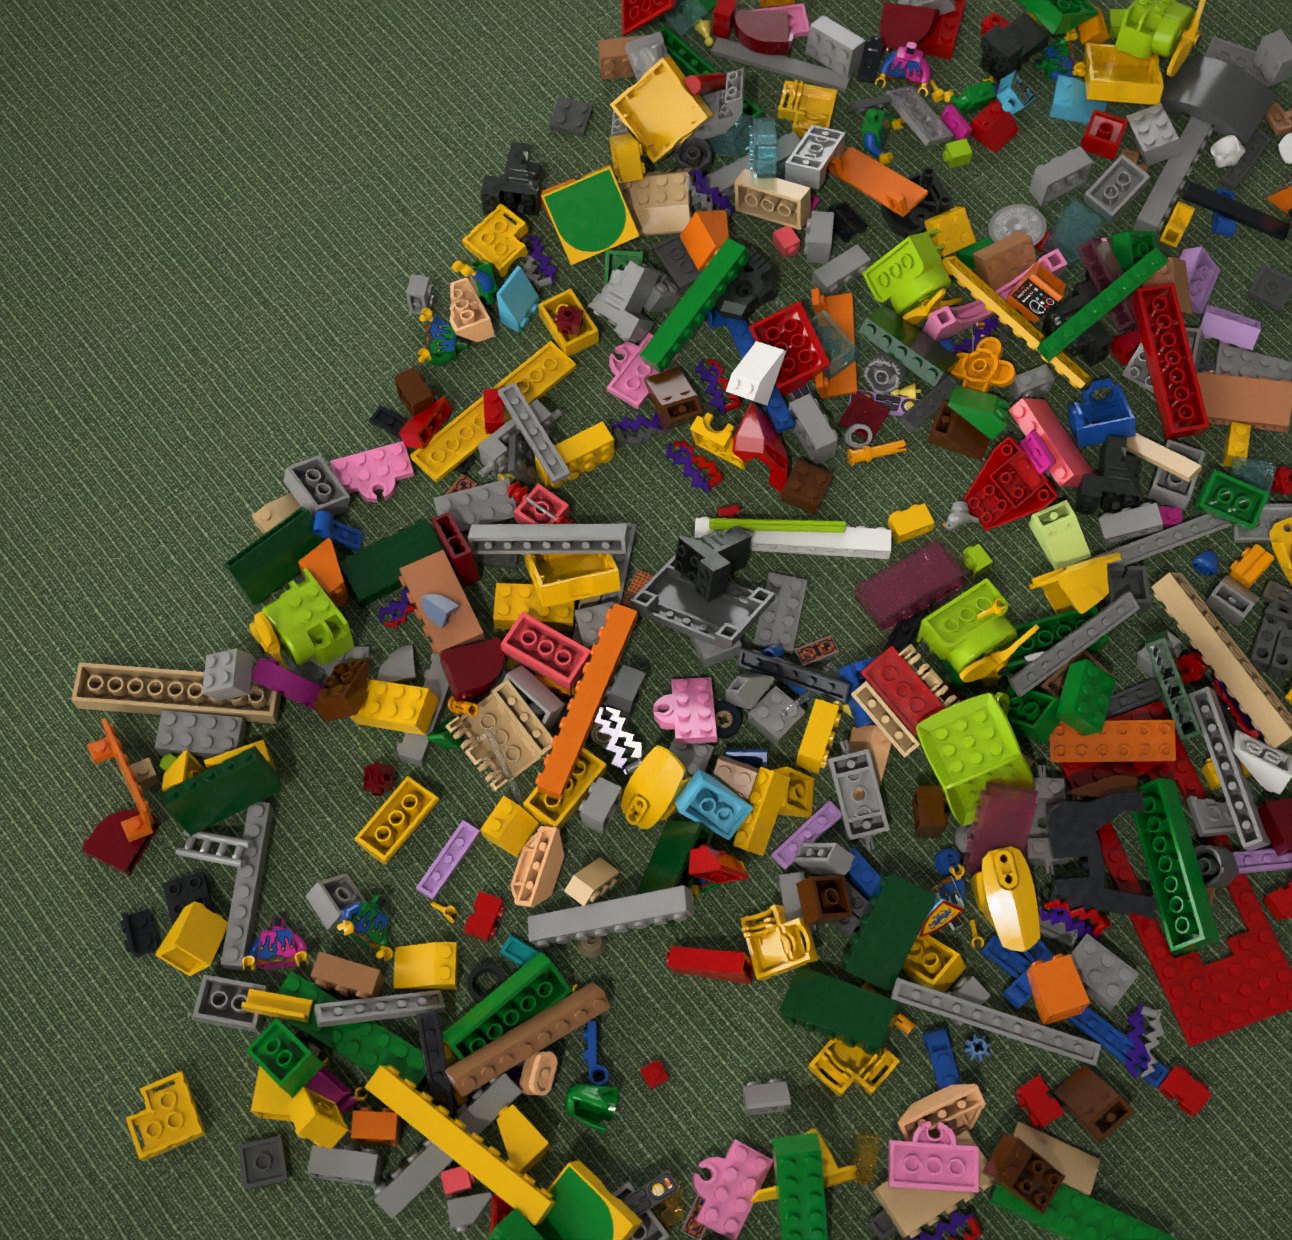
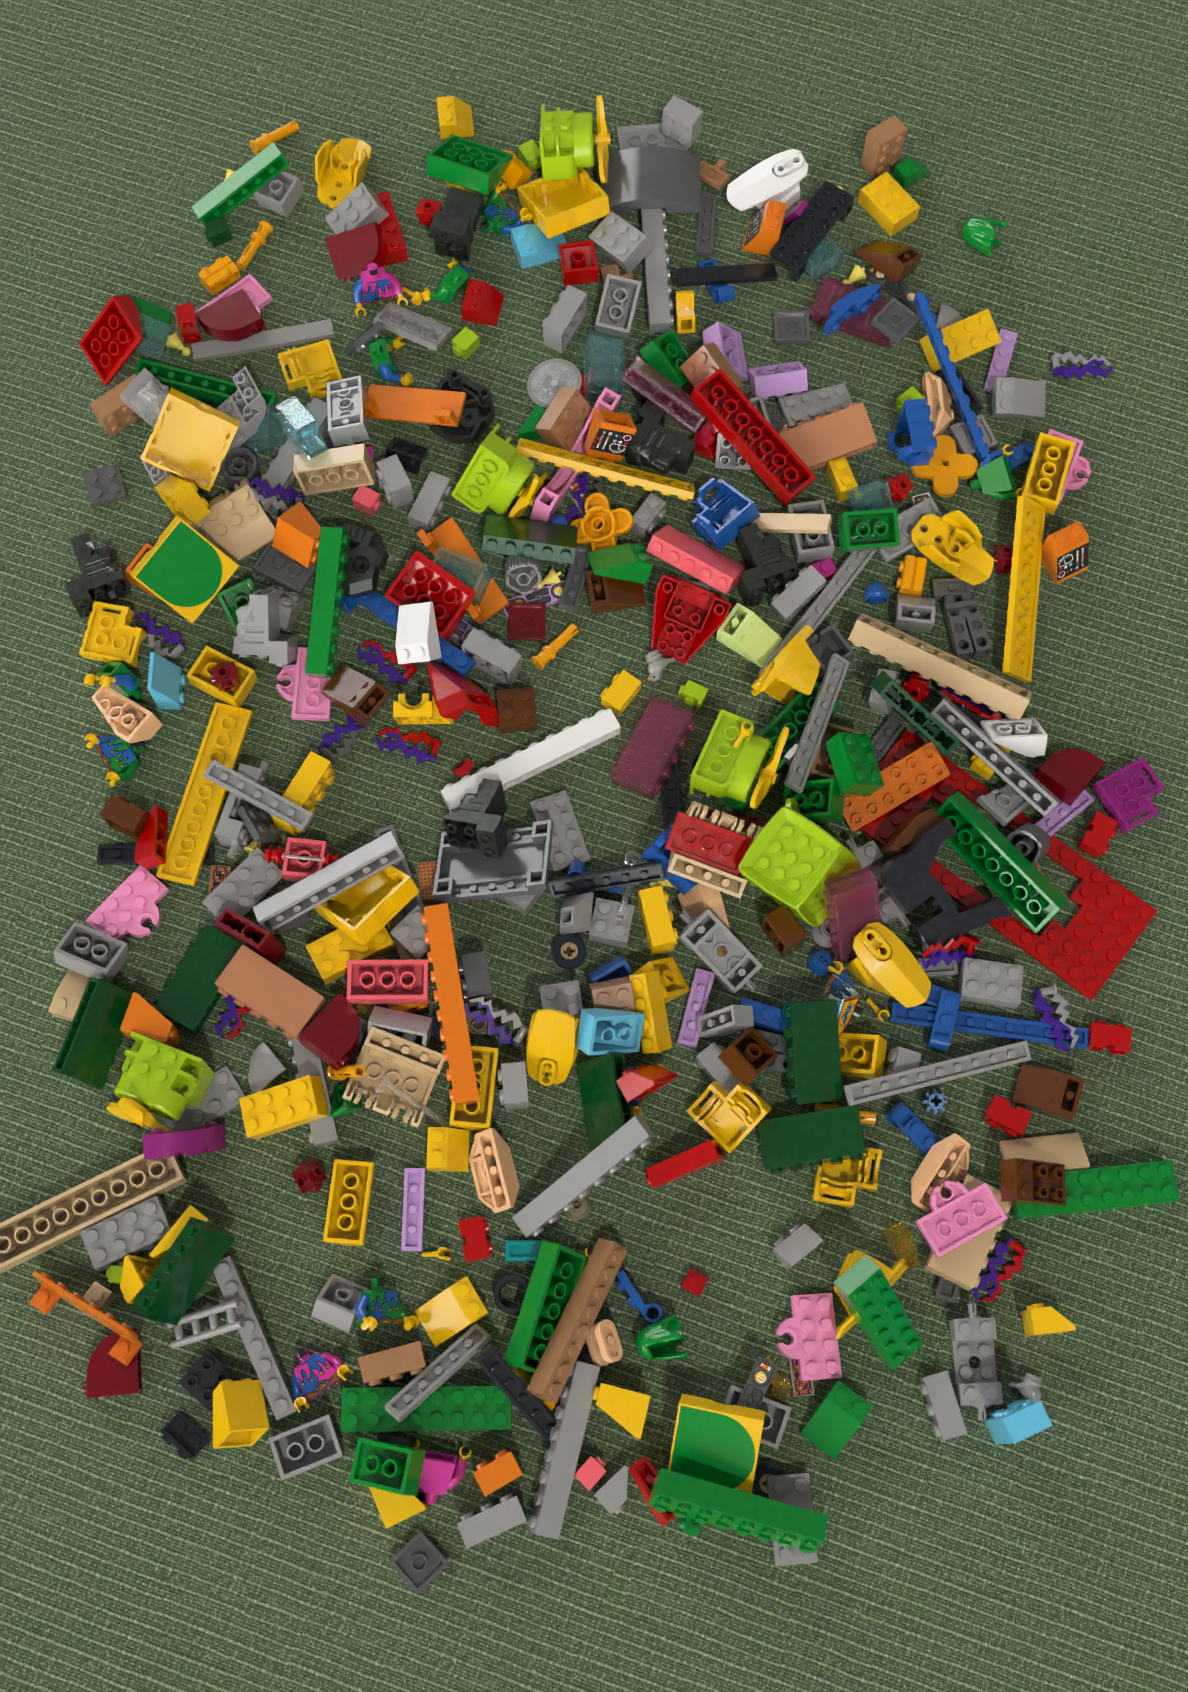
camera: 35 degrees left, 5 degrees up
(168, 1117) = (316, 1579): yellow piece -> none
(227, 674) = (122, 1167): light grey brick -> none
(278, 1005) = (351, 1424): yellow panel -> none
(316, 1118) = (447, 1499): yellow brick -> none
(338, 532) = (136, 981): blue plate -> none
(343, 690) = (233, 1119): reddish brown slope -> none
(419, 294) = (72, 724): light grey brick -> none
(438, 608) = (273, 999): sand blue brick -> none
(460, 1144) = (579, 1444): yellow brick -> none
(493, 410) = (207, 794): red brick -> none
(592, 882) = (550, 1155): tan brick -> none
(688, 711) = (538, 961): bright pink plate -> none
(705, 83) = (215, 394): red brick -> none
(778, 525) = (514, 758): lime axle -> none
(816, 651) = (609, 847): tile -> none
(835, 46) = (303, 300): light grey brick -> none
(847, 436) = (524, 637): light grey piece -> none
(870, 59) = (340, 296): black hinge -> none
(954, 230) = (503, 411): yellow brick -> none
(955, 123) = (448, 317): dark pink plate -> none
(1014, 93) = (482, 264): medium azure torso -> none
(1038, 452) = (693, 575): dark pink plate -> none
(1057, 989) = (970, 1017): orange slope -> none
(1102, 304) = (672, 418): green brick -> none
(1227, 151) = (688, 225): white hair -> none

